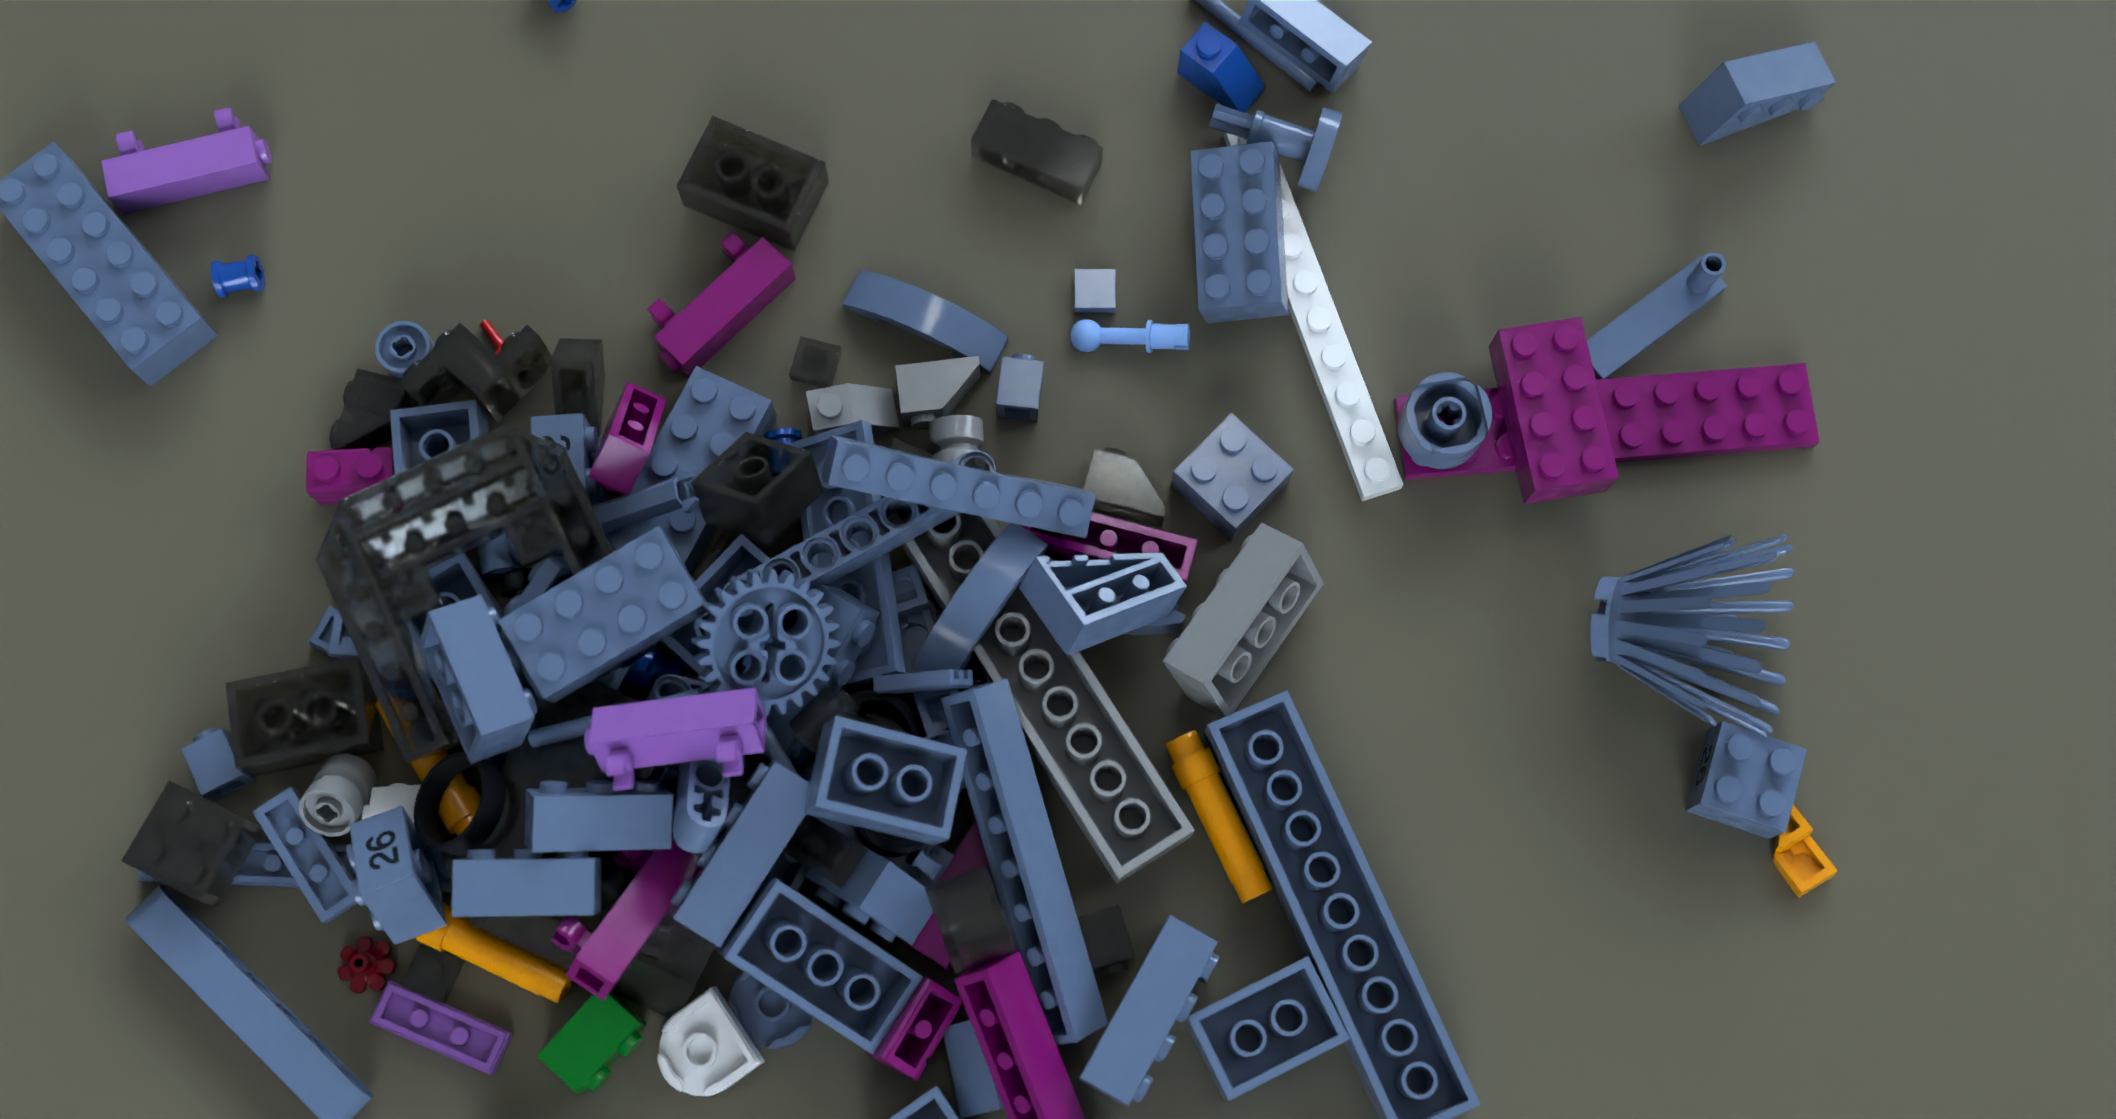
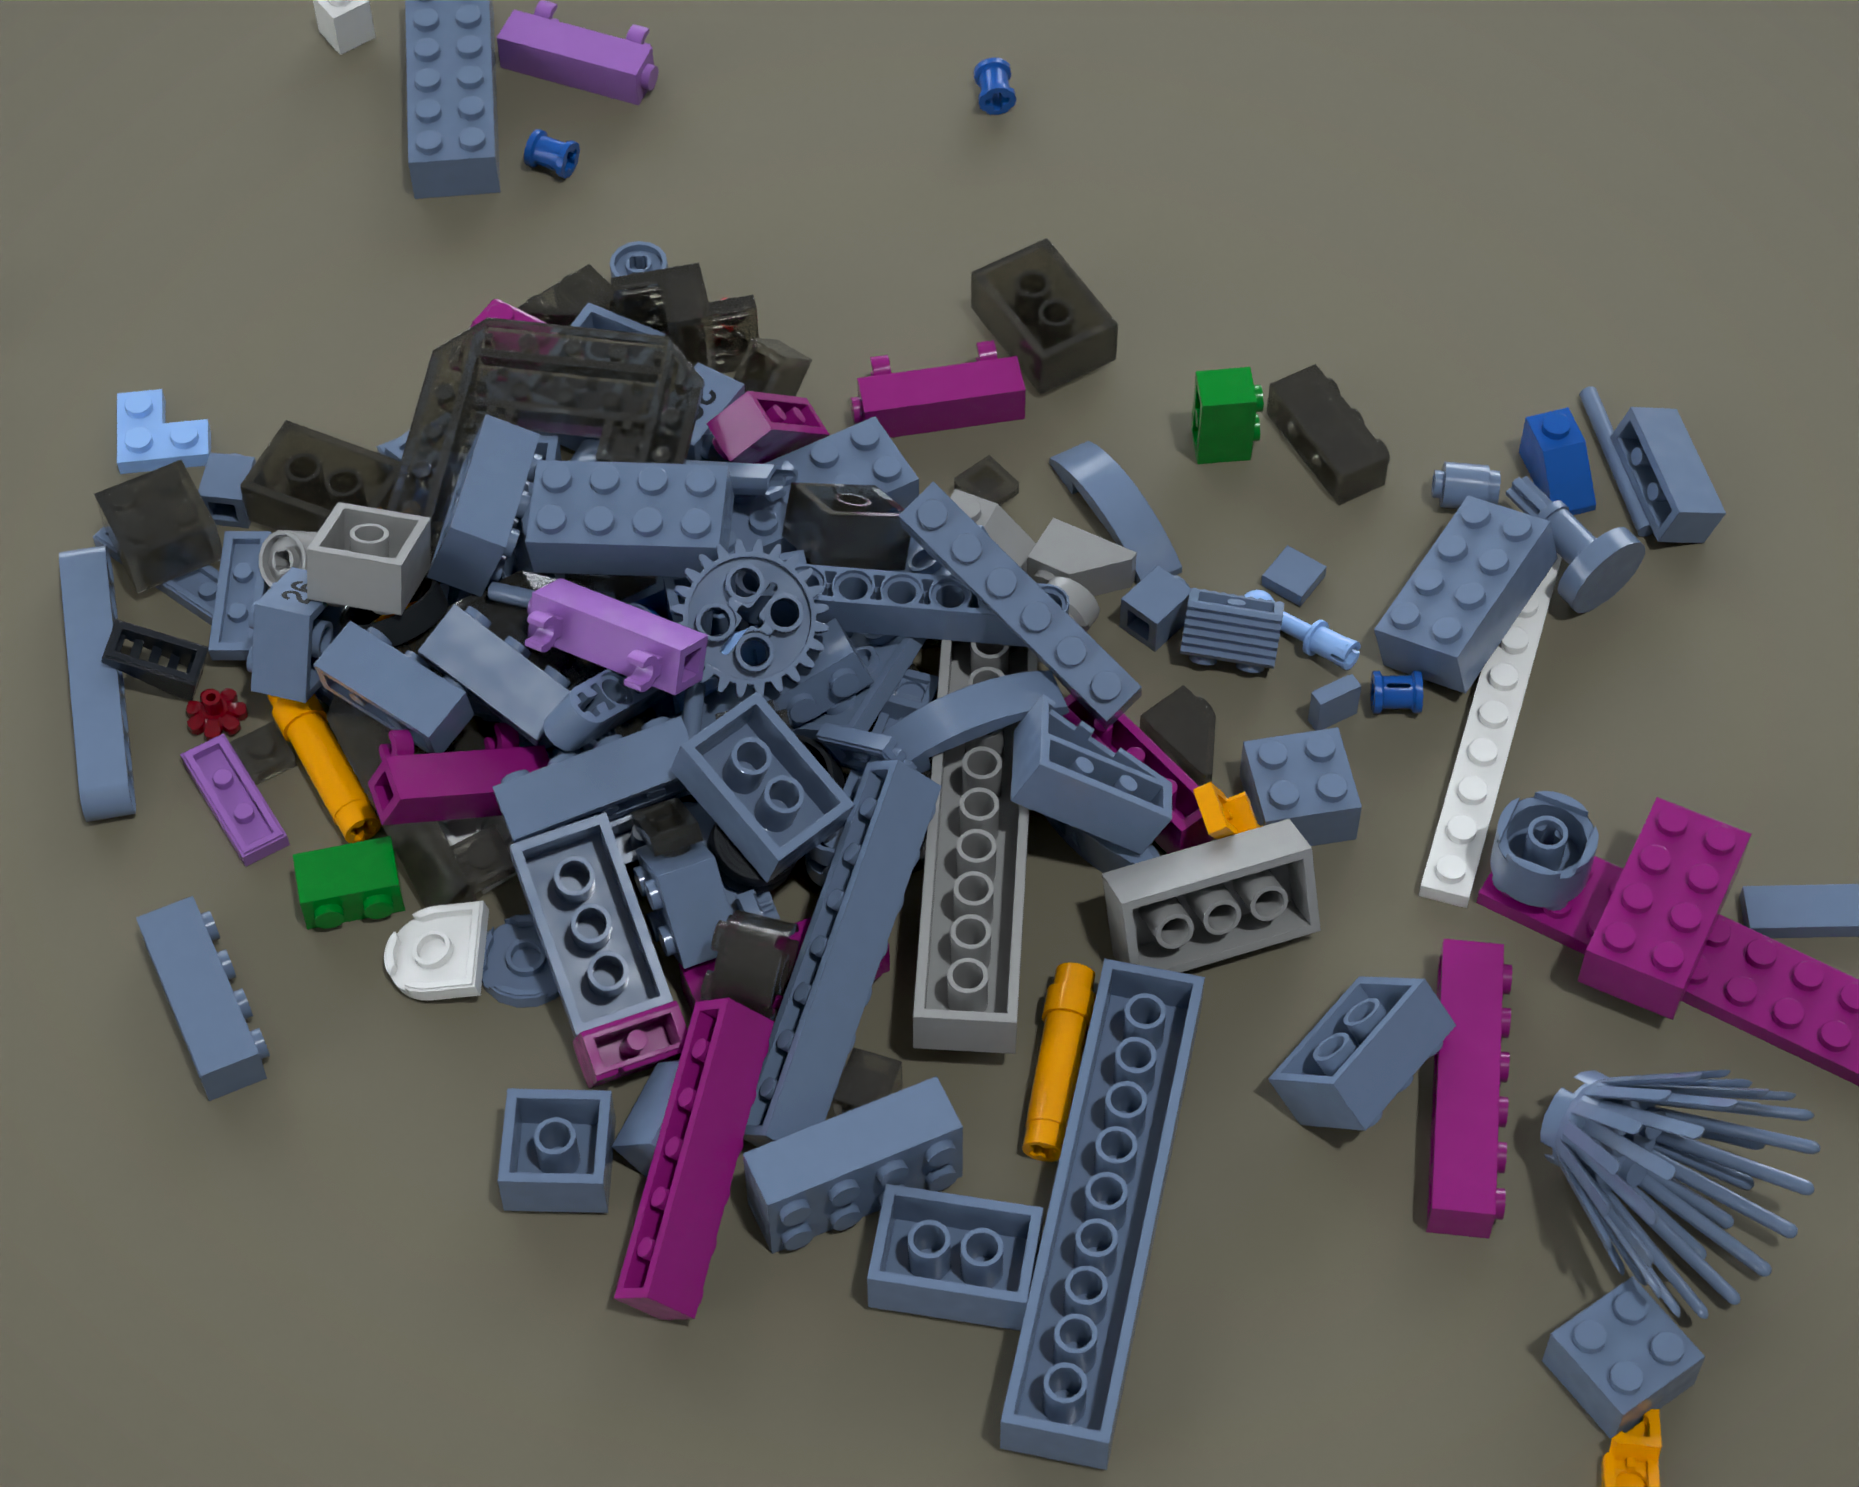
camera: 40 degrees right, 20 degrees down
(109, 762) = (149, 442): none -> light blue plate
(320, 942) = (175, 649): none -> black slope
(418, 788) = (368, 558): none -> light grey brick
(957, 188) = (1225, 415): none -> green brick
(1091, 373) = (1232, 630): none -> sand blue brick
(1168, 132) = (1463, 480): none -> sand blue brick
(1202, 384) = (1334, 702): none -> sand blue tile
(1215, 548) = (1222, 814): none -> light orange slope
(1252, 340) = (1396, 692): none -> blue bush
(1430, 671) = (1362, 1053): none -> sand blue brick
(1506, 639) = (1467, 1091): none -> magenta brick

